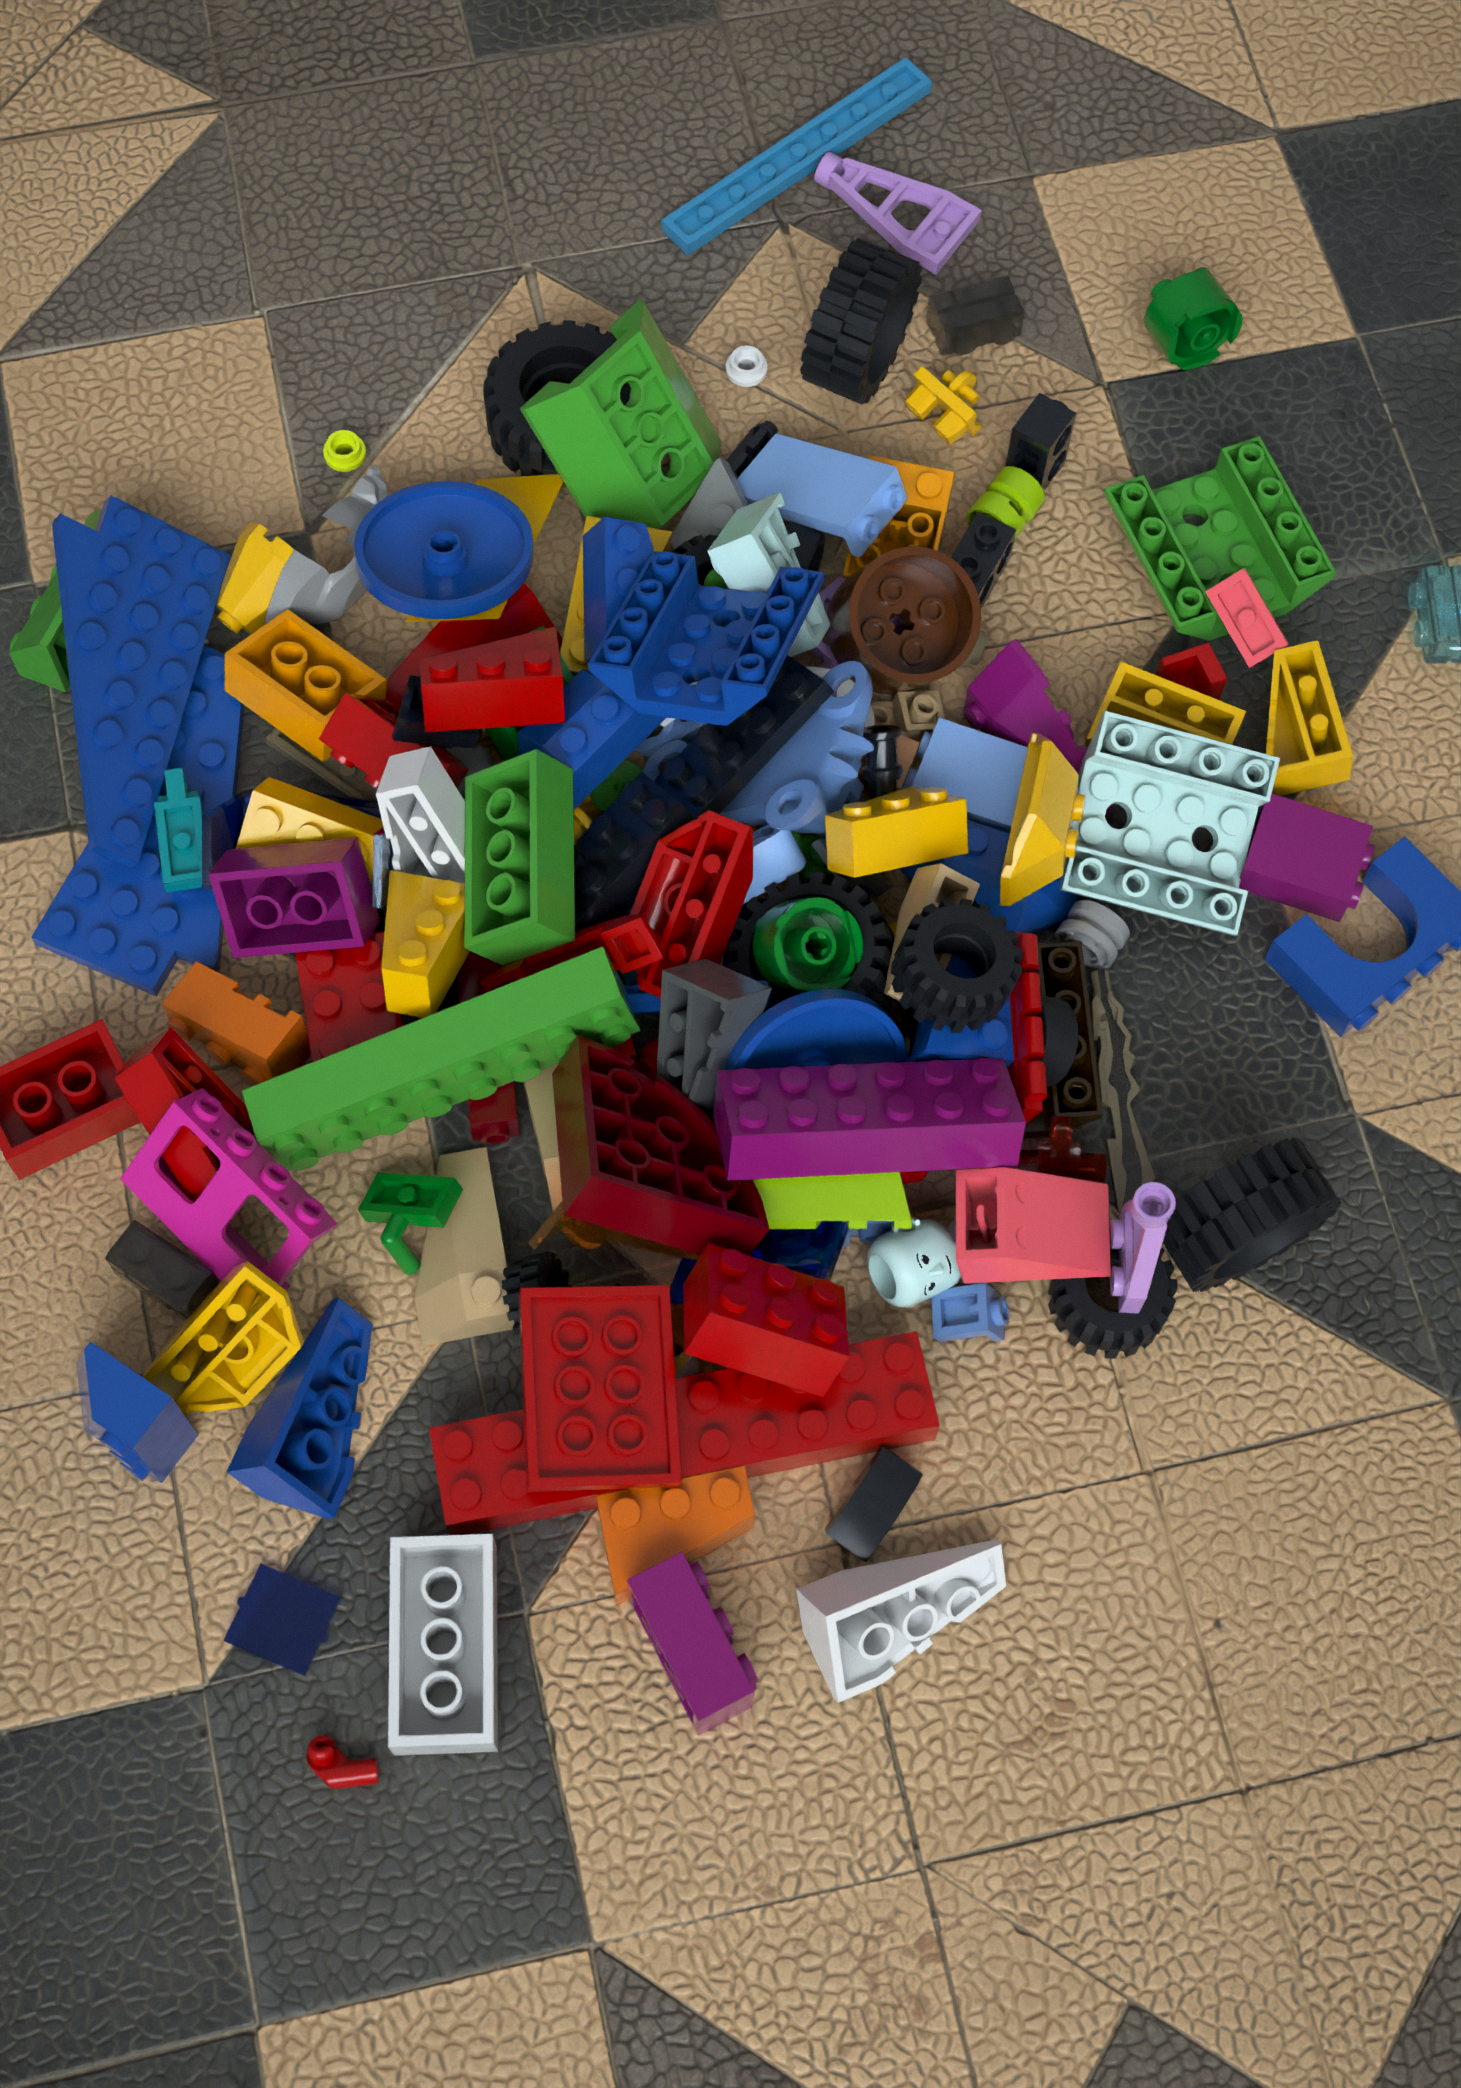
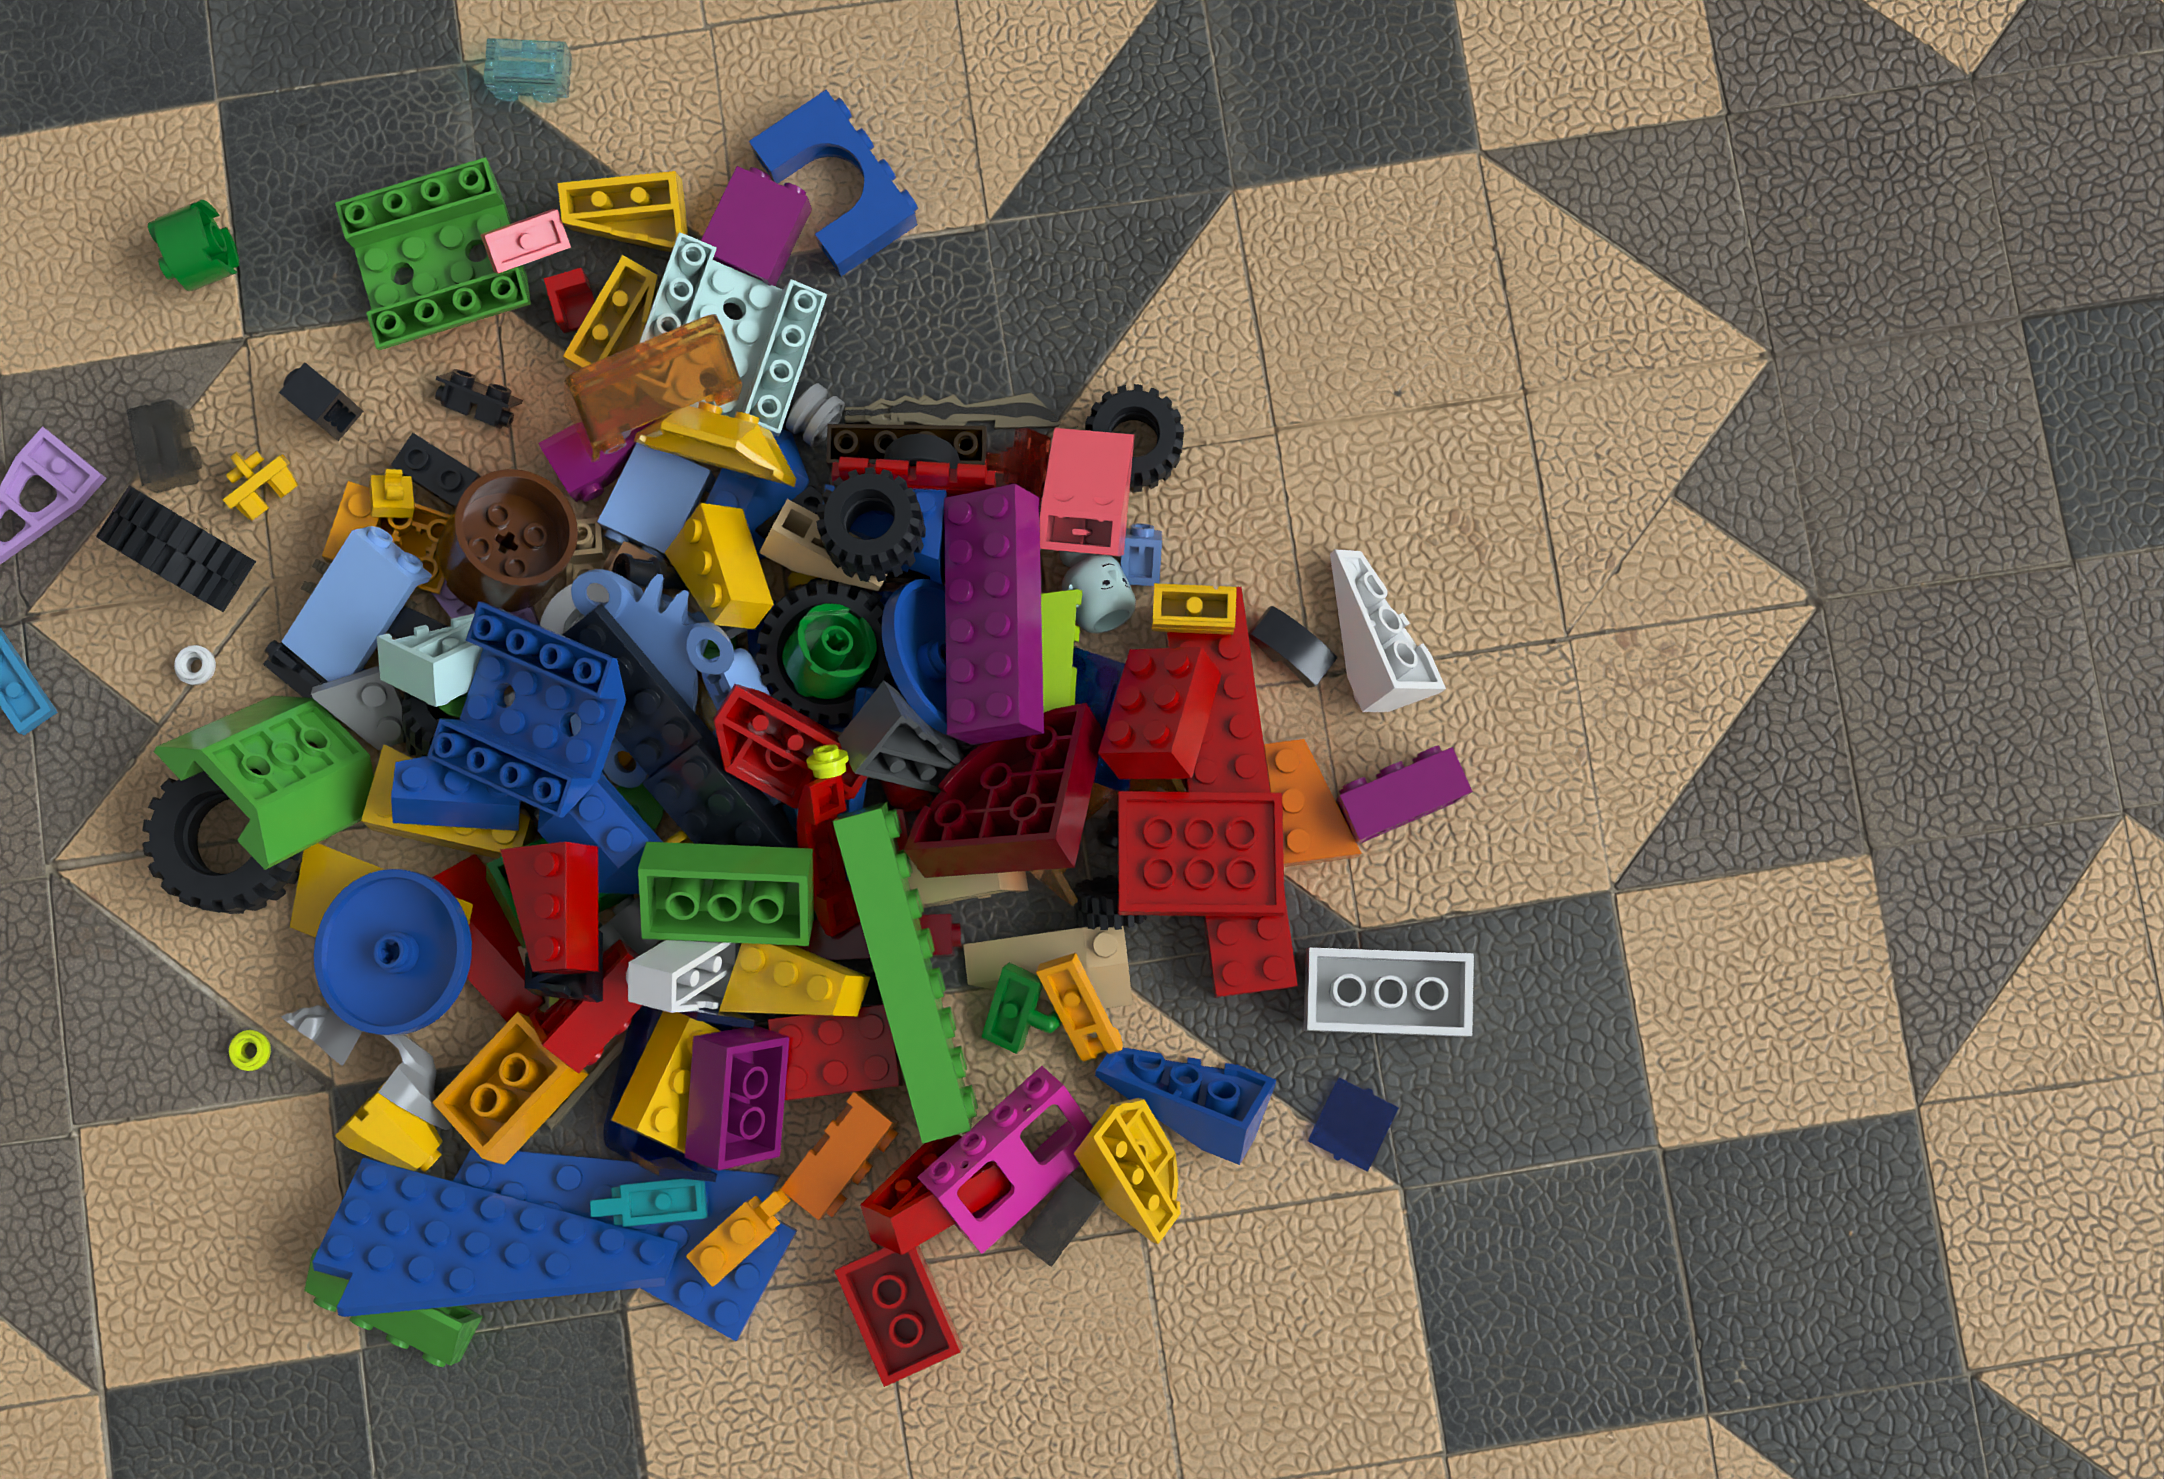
camera: 80 degrees left, 15 degrees up
(131, 1416) = (1187, 1250): blue wedge -> none
(143, 922) = (737, 1237): none -> light orange hinge
(336, 1768) = (1474, 1082): red arm -> none
(411, 1271) = (1078, 1007): none -> light orange plate
(674, 942) = (827, 761): none -> neon yellow plate
(899, 1354) = (1193, 609): none -> yellow brick
(942, 511) = (391, 495): none -> yellow tile
(1010, 498) = (375, 436): lime wheel -> none
(1072, 583) = (492, 400): none -> black hinge
(1097, 727) = (650, 383): none -> clear orange windscreen
(1139, 1239) = (1121, 405): lavender plate -> none
(1248, 1214) = (1089, 319): black tyre -> none

